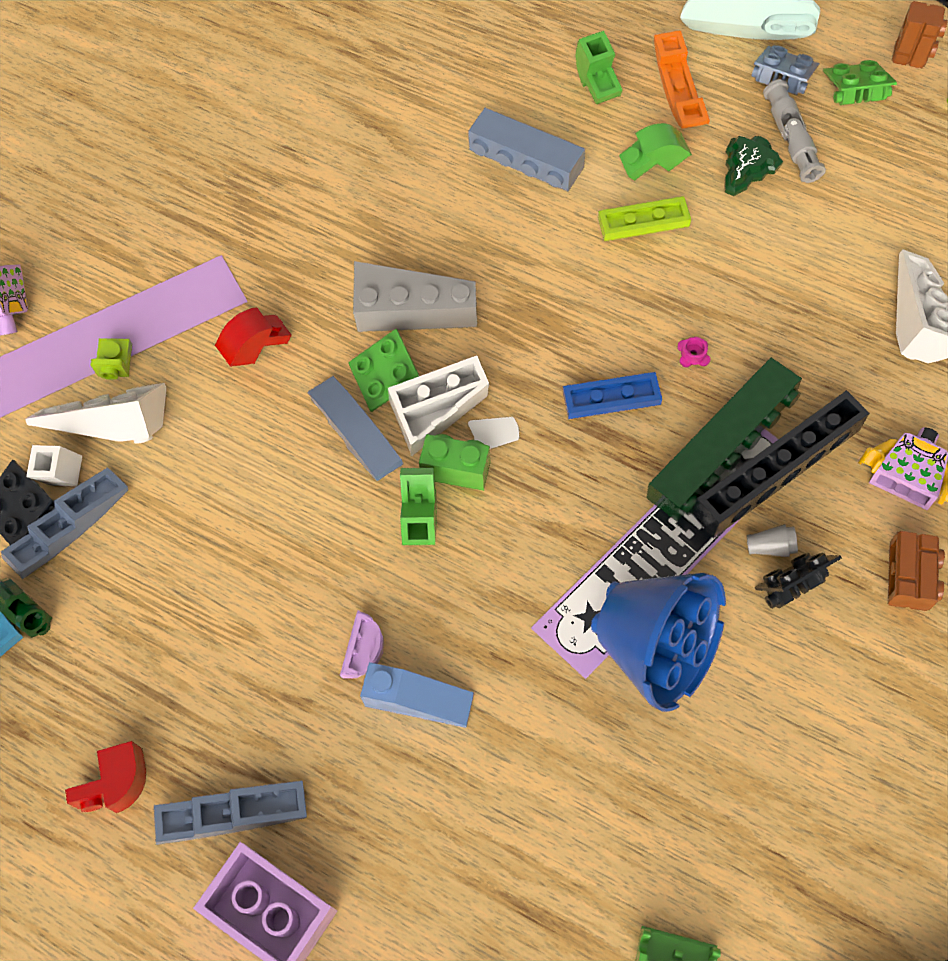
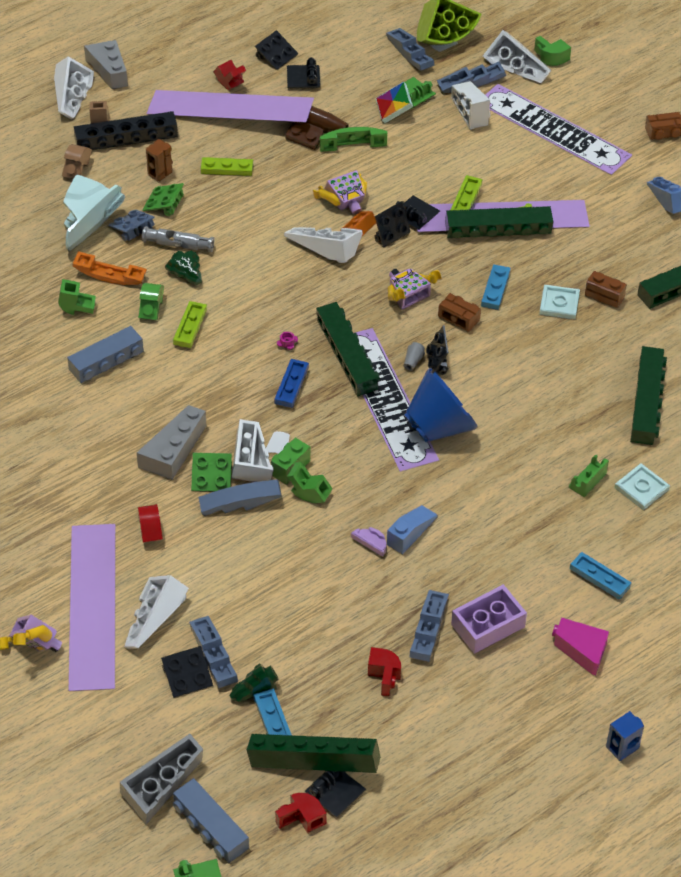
camera: 70 degrees left, 15 degrees down
(54, 465) = (177, 639): white brick -> none
(112, 358) = (114, 597): lime bracket -> none
(779, 464) = (377, 332): black brick -> none

